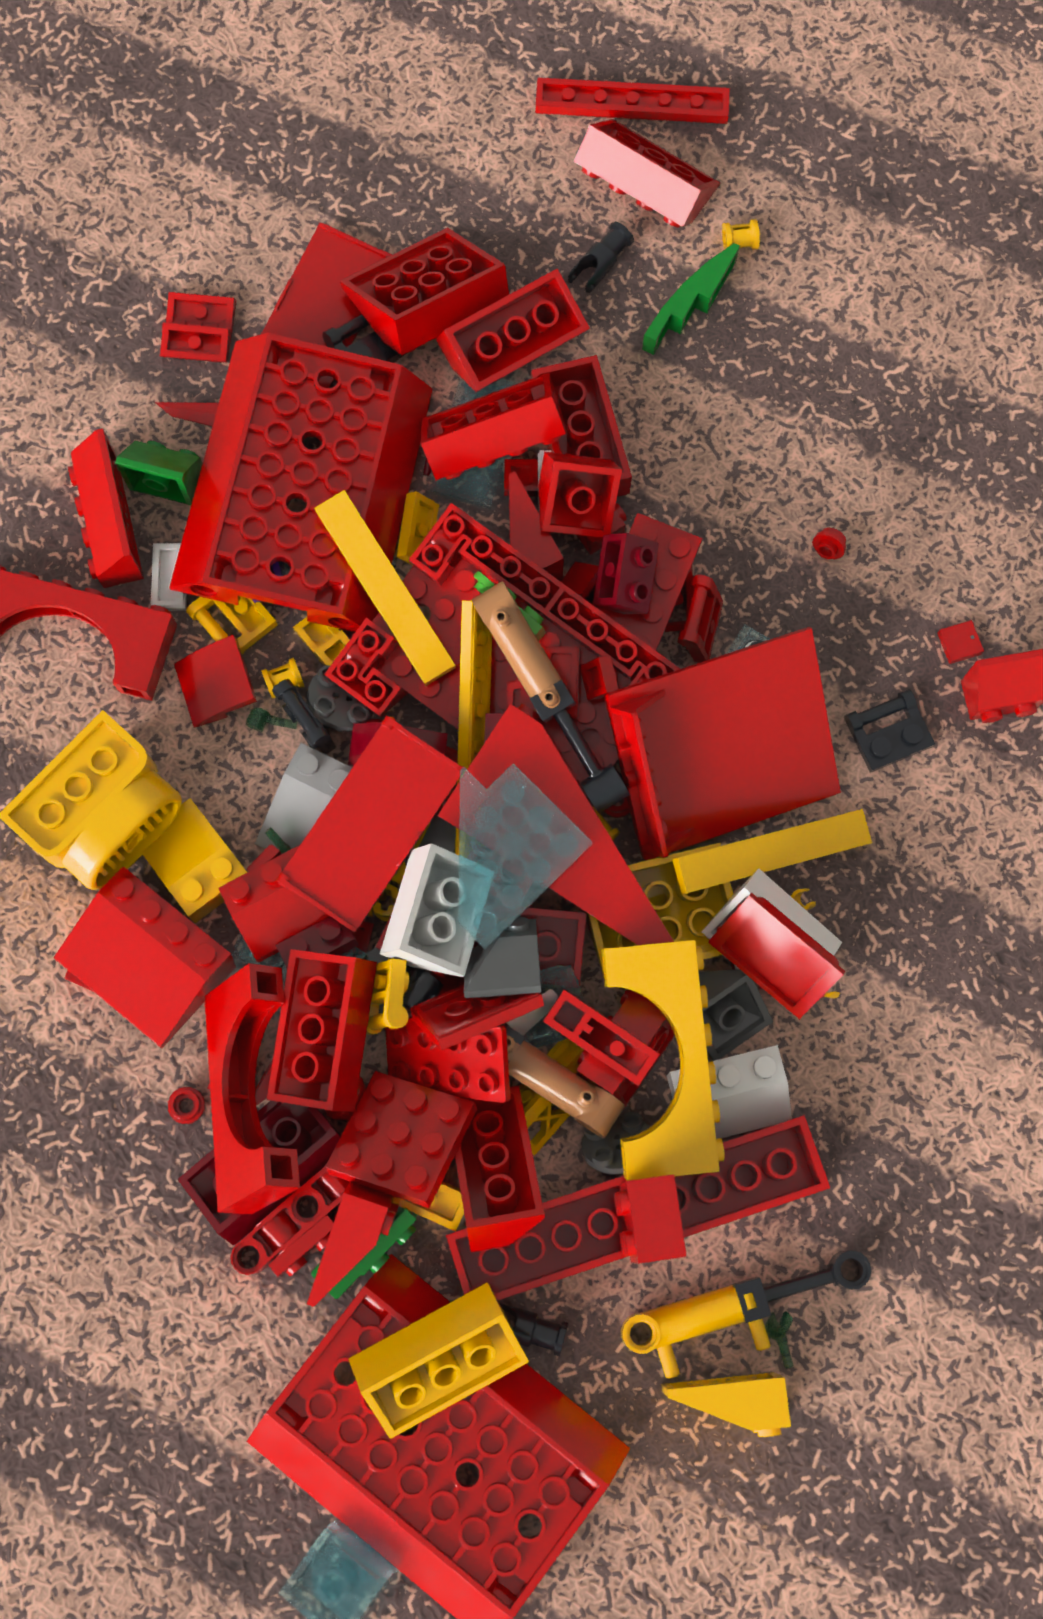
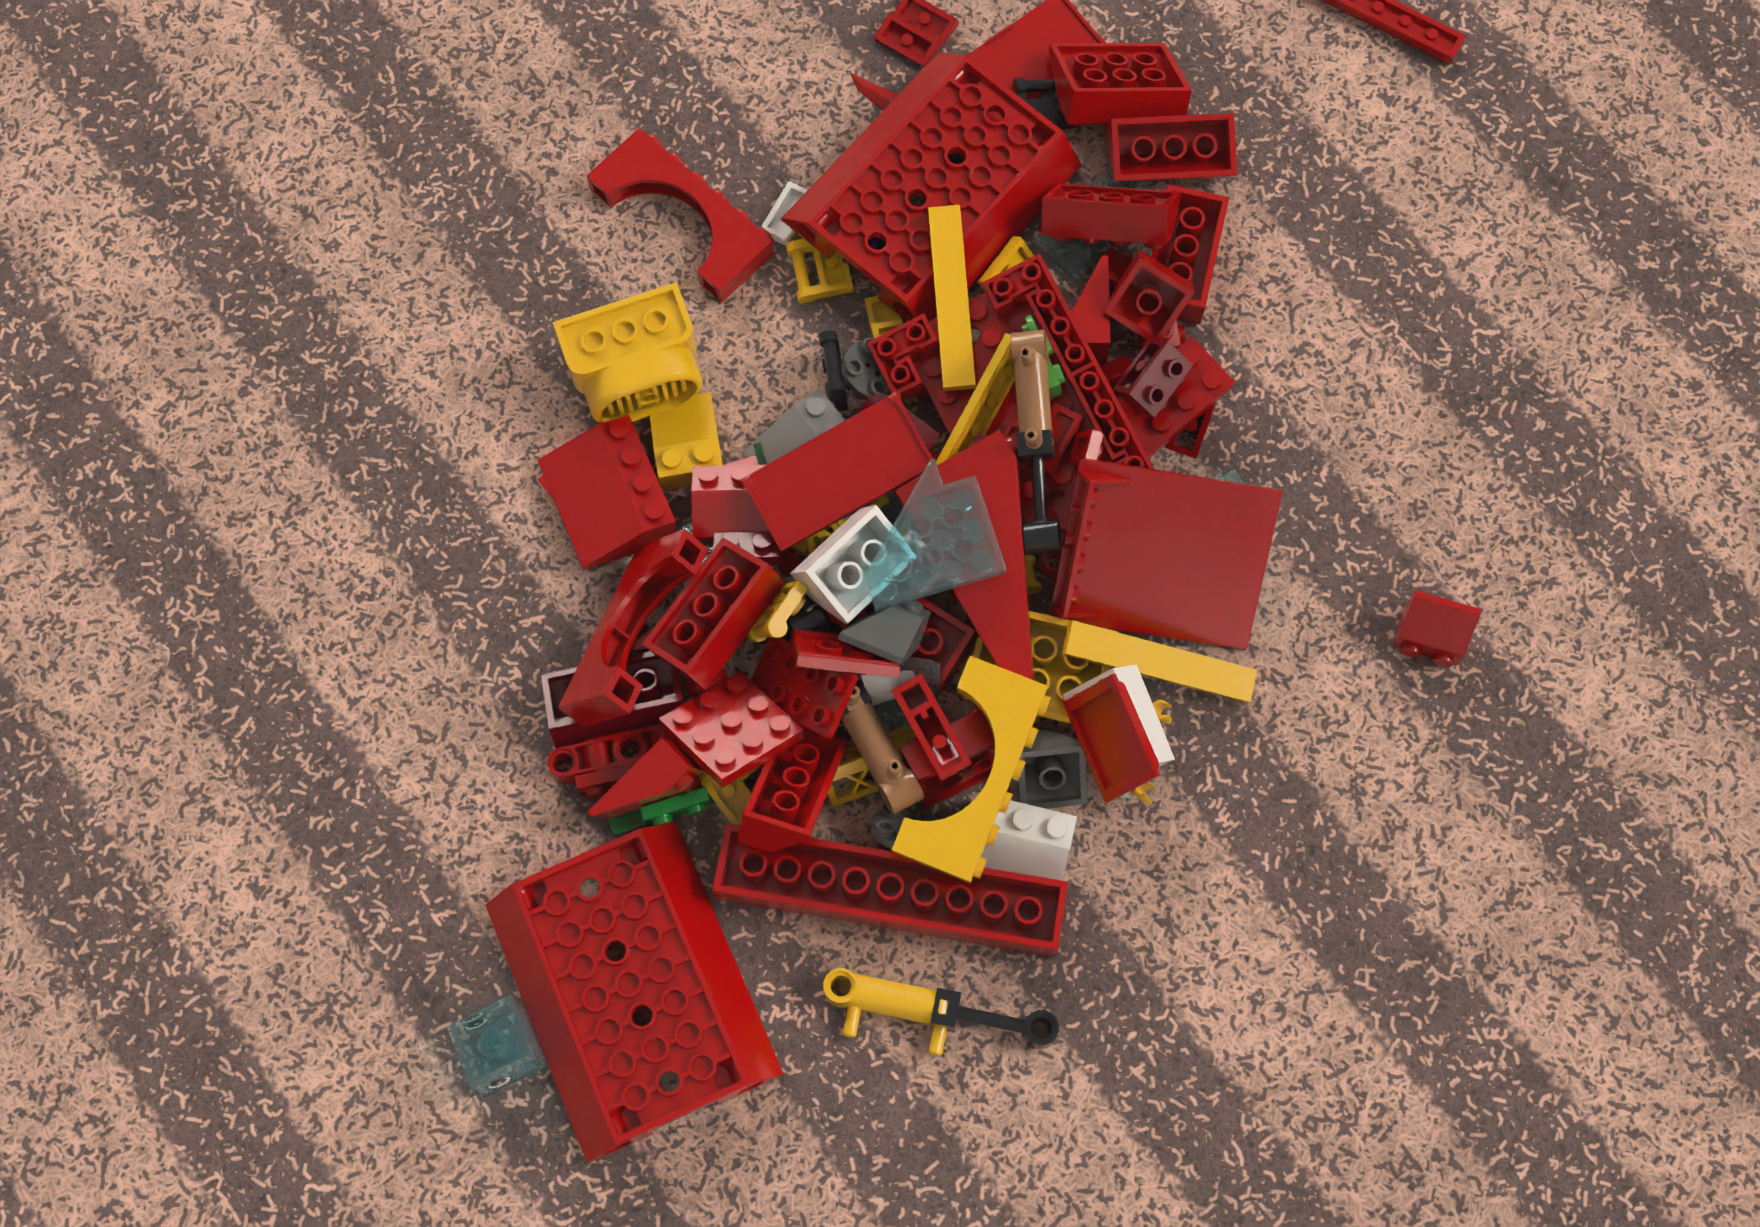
camera: 30 degrees right, 5 degrees down
(105, 512) = (763, 138): slope -> none
(160, 471) = (823, 125): green slope -> none
(175, 1101) = (574, 617): red plate -> none
(215, 681) = (779, 310): red slope -> none
(259, 718) = (799, 356): clear green hand -> none
(286, 671) = (843, 331): yellow bush -> none
(437, 1360) = (666, 912): yellow slope -> none
(537, 1331) = (754, 939): black piece -> none
(603, 255) = (1282, 123): black piece -> none
(645, 172) = (1356, 72): slope -> none
(650, 1219) = (893, 884): red brick -> none
(696, 292) = (1347, 188): green slope -> none
(701, 618) = (1205, 448): red plate -> none
(741, 234) = (1410, 160): yellow bush -> none
(746, 1400) = (893, 1080): yellow slope -> none
(778, 1332) = (954, 1046): clear green hand -> none
(830, 543) = (1348, 443): red plate -> none
(894, 741) = (1316, 631): black plate -> none
(960, 642) = (1418, 576): red tile -> none

